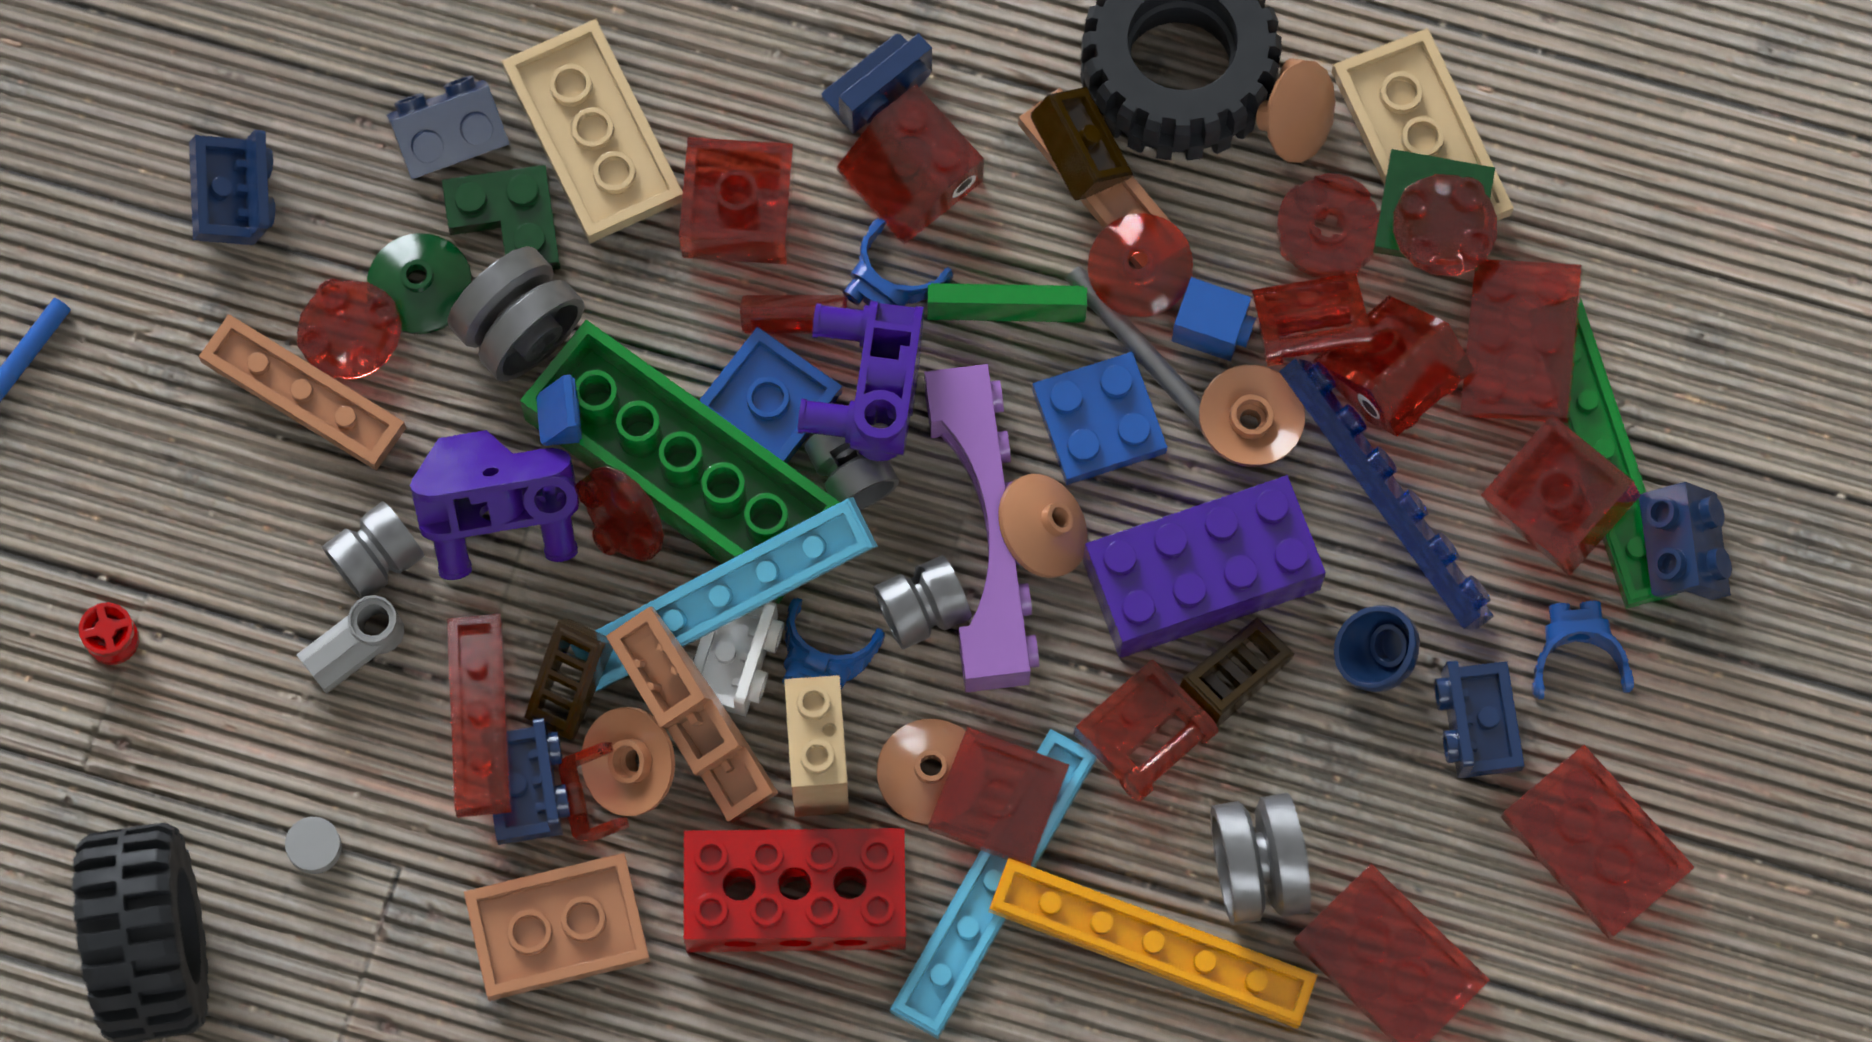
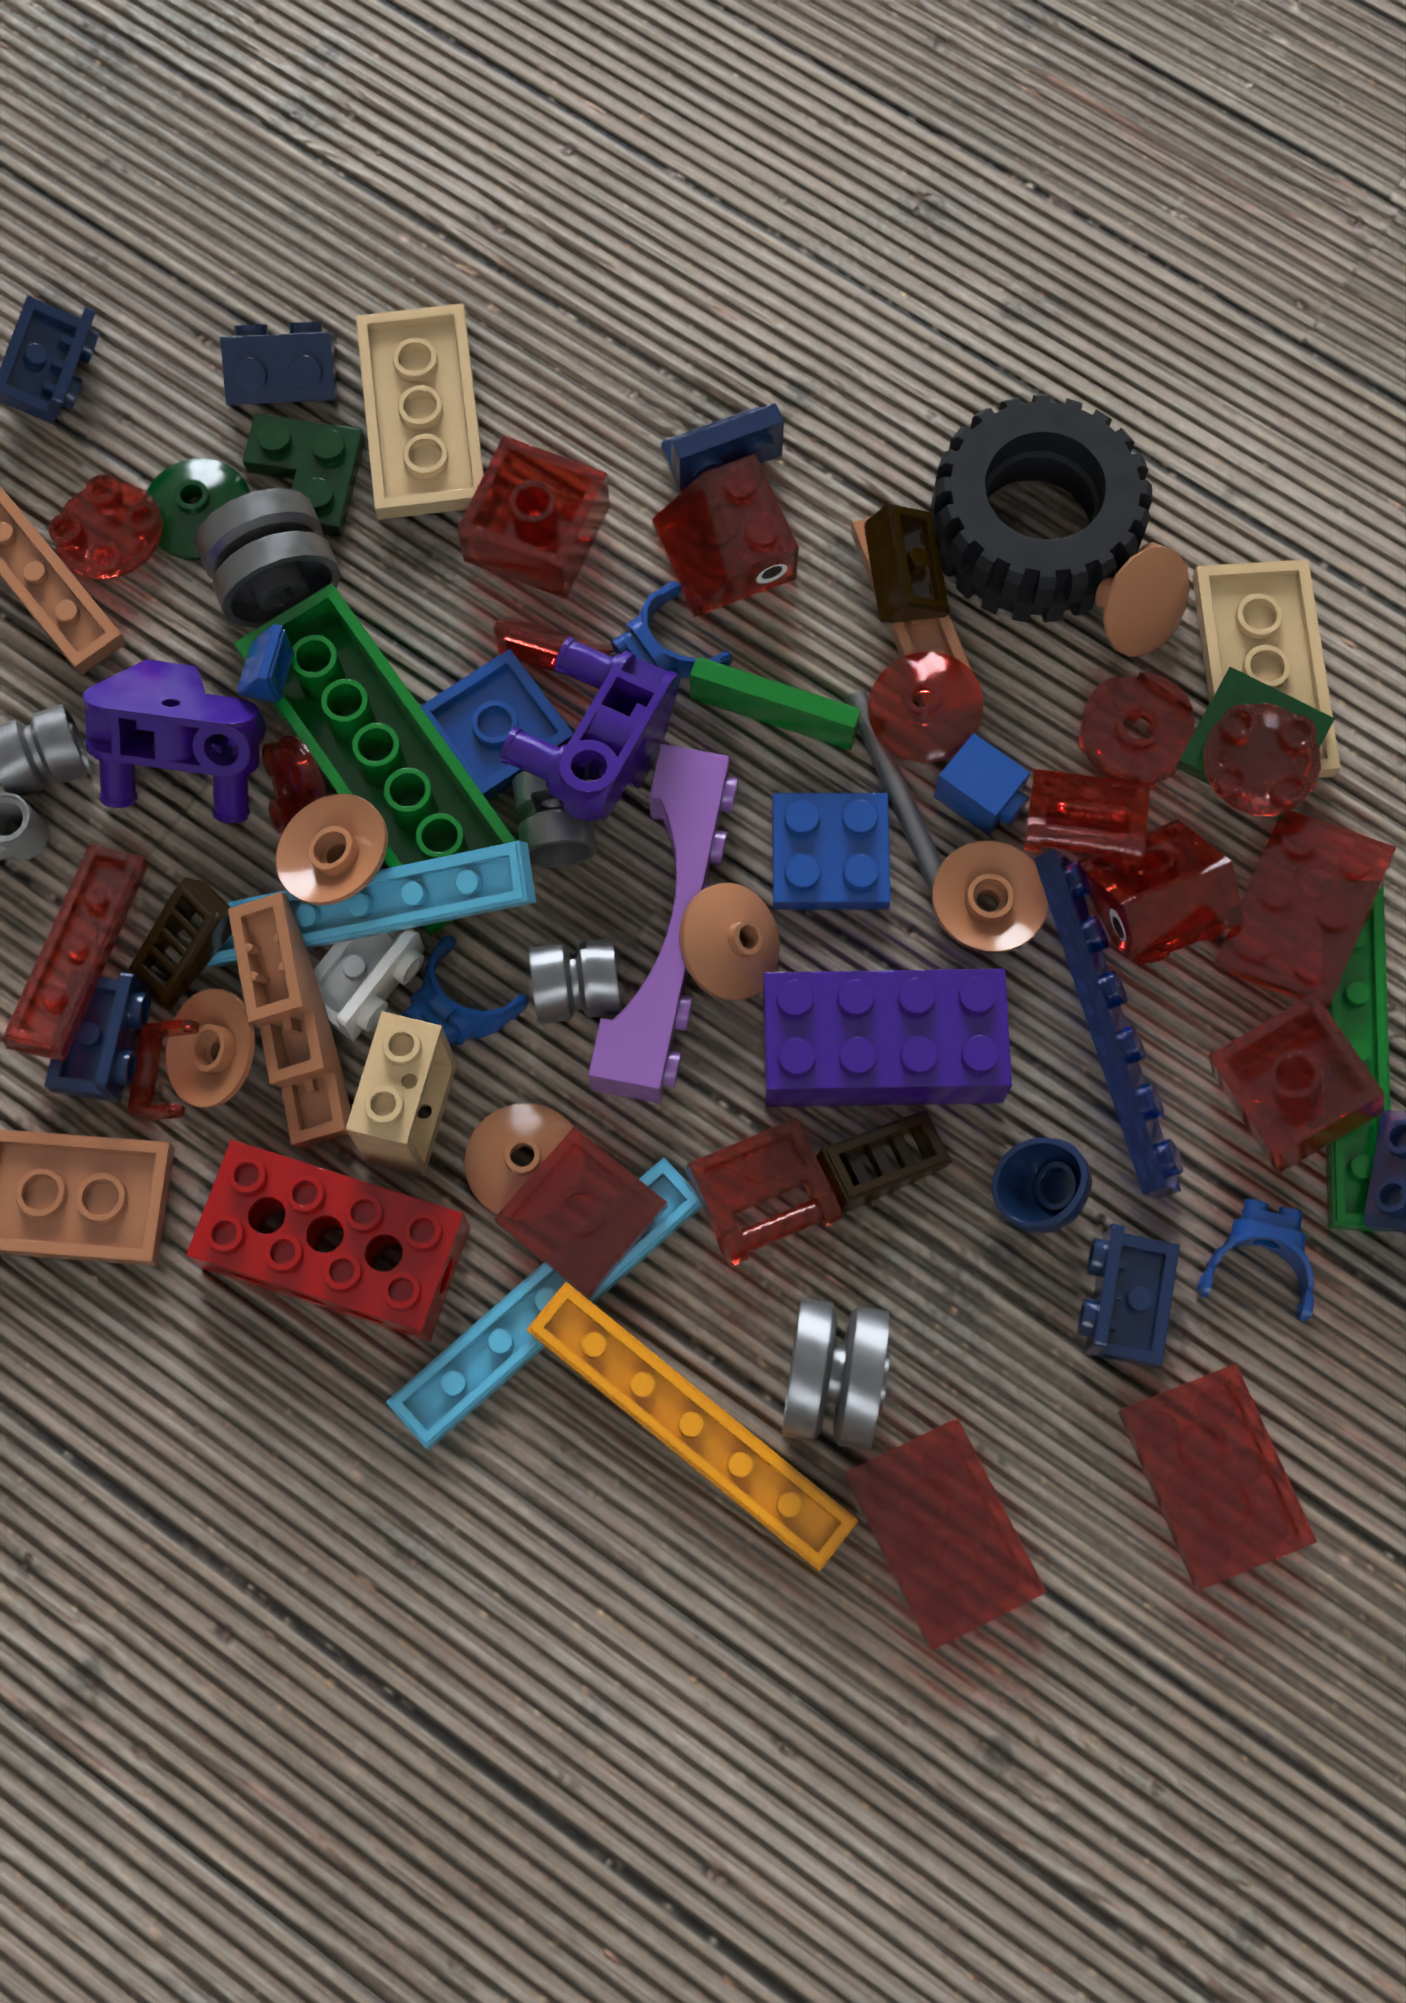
camera: 20 degrees right, 0 degrees up
(663, 544) = (319, 836): none -> nougat dish

